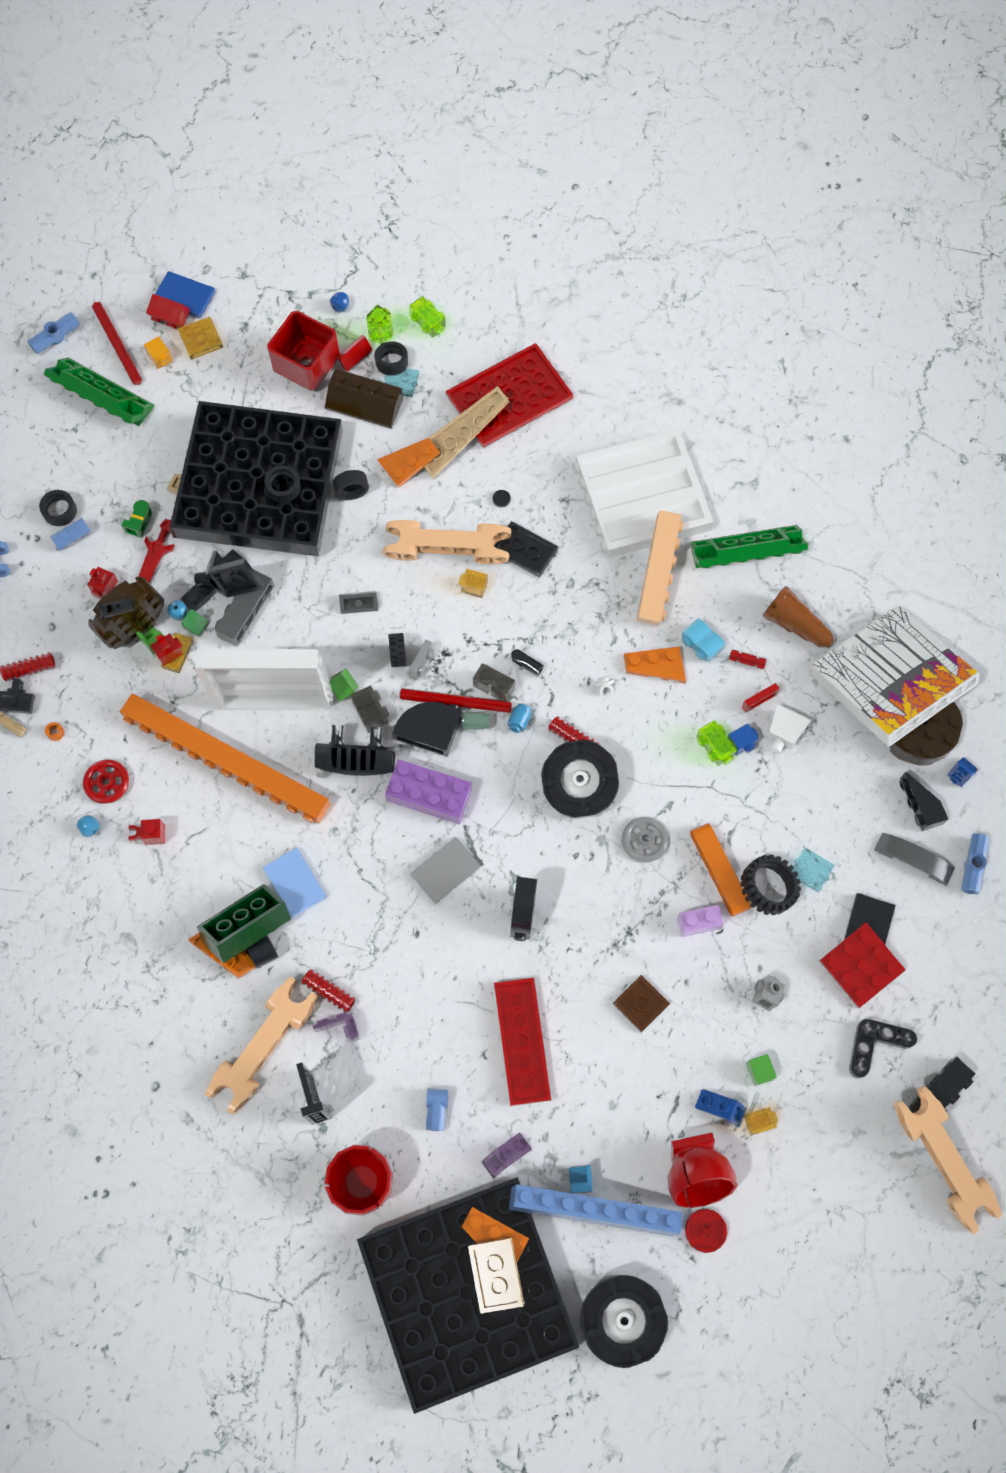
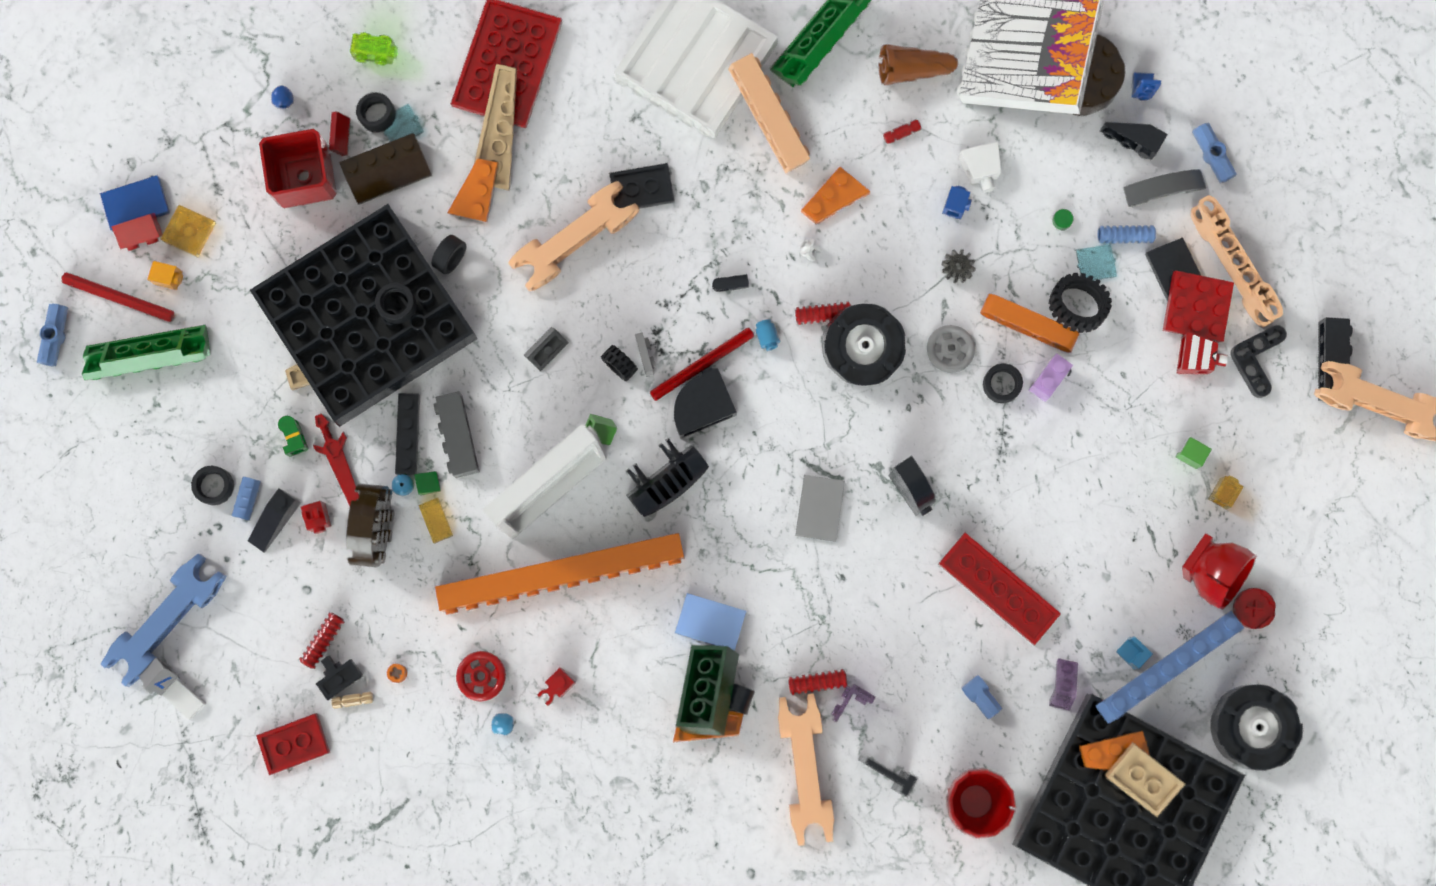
camera: 40 degrees left, 10 degrees up
(74, 561) = (273, 519): none -> black slope
(119, 607) = (370, 527): black bar -> none
(149, 638) = (405, 527): bright green panel -> none
(167, 648) = (428, 525): red brick -> none
(230, 577) = (425, 424): black plate -> none
(369, 709) = (640, 431): clear smoke piece -> none
(379, 324) = (340, 90): clear neon green brick -> none
(428, 791) = (751, 457): medium lavender brick -> none
(473, 583) = (627, 252): clear yellow brick -> none
(475, 720) = (734, 367): sand green piece -> none
(501, 498) = (582, 159): black piece -> none
(501, 684) = (713, 322): clear smoke piece -> none
(641, 1003) = (1060, 480): reddish brown tile -> none
(664, 881) = (1010, 369): none -> black tyre
(696, 789) = (951, 267): none -> clear smoke gear
(702, 640) = (854, 145): medium azure brick -> none
(716, 743) = (940, 223): clear neon green brick -> none
(721, 1106) = (1187, 507): blue bracket -> none
(760, 698) = (941, 155): red tile -> none
(768, 992) = (1149, 388): light grey brick -> none
(813, 817) = (1062, 219): none -> green tile
(830, 1002) = (1199, 355): none -> red torso
(853, 867) = (1126, 234): none -> medium blue piece
(916, 991) = (1256, 294): none -> light nougat piece

